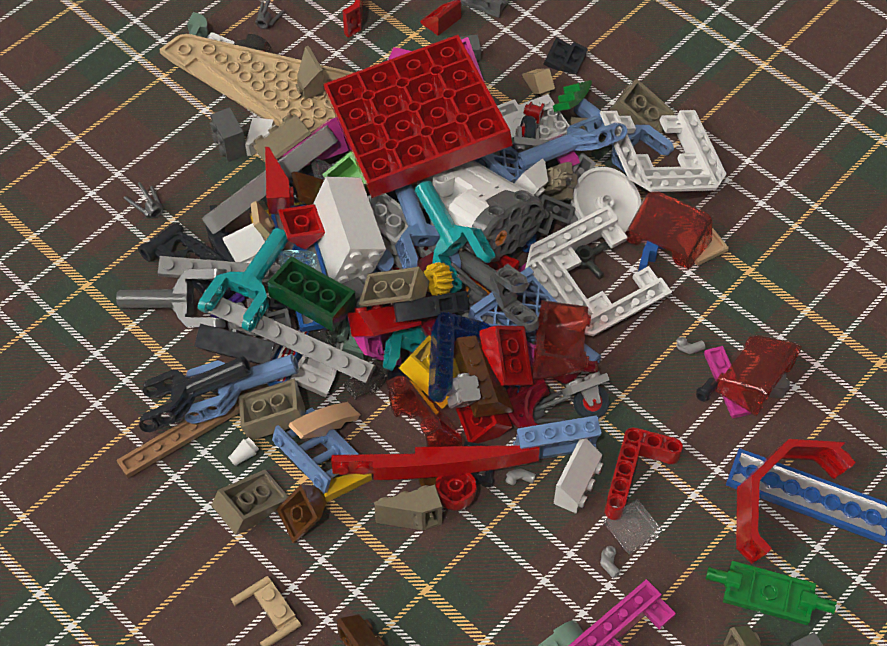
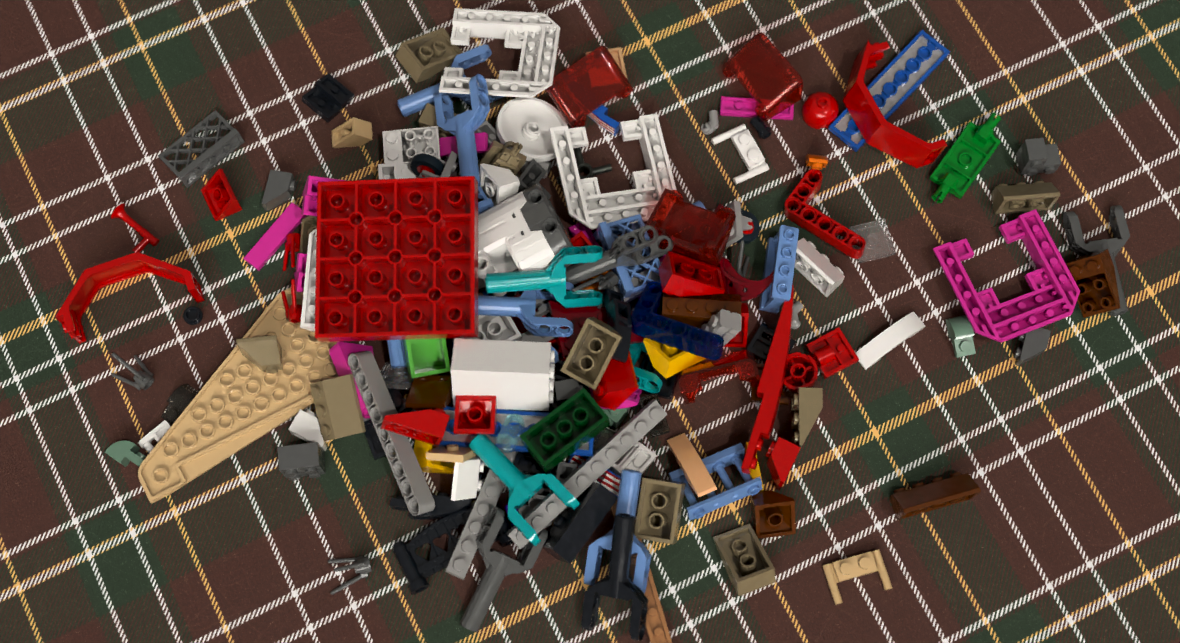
camera: 70 degrees left, 15 degrees up
(244, 451) = (689, 551): white cone -> none
(330, 32) = (193, 315): none -> black plate
(355, 500) = (781, 458): none -> red slope
(439, 278) = (592, 306): yellow gear -> none
(492, 520) = (832, 353): none -> red plate
(533, 572) = (889, 339): none -> white slope
(535, 111) = (408, 151): red brick -> none
(572, 95) = (393, 109): green slope -> none
(607, 561) = (897, 274): light grey arm -> none
(676, 386) = (747, 149): none -> white plate
(691, 442) = (816, 162): none -> orange slope
(754, 436) = (820, 110): none -> red cylinder

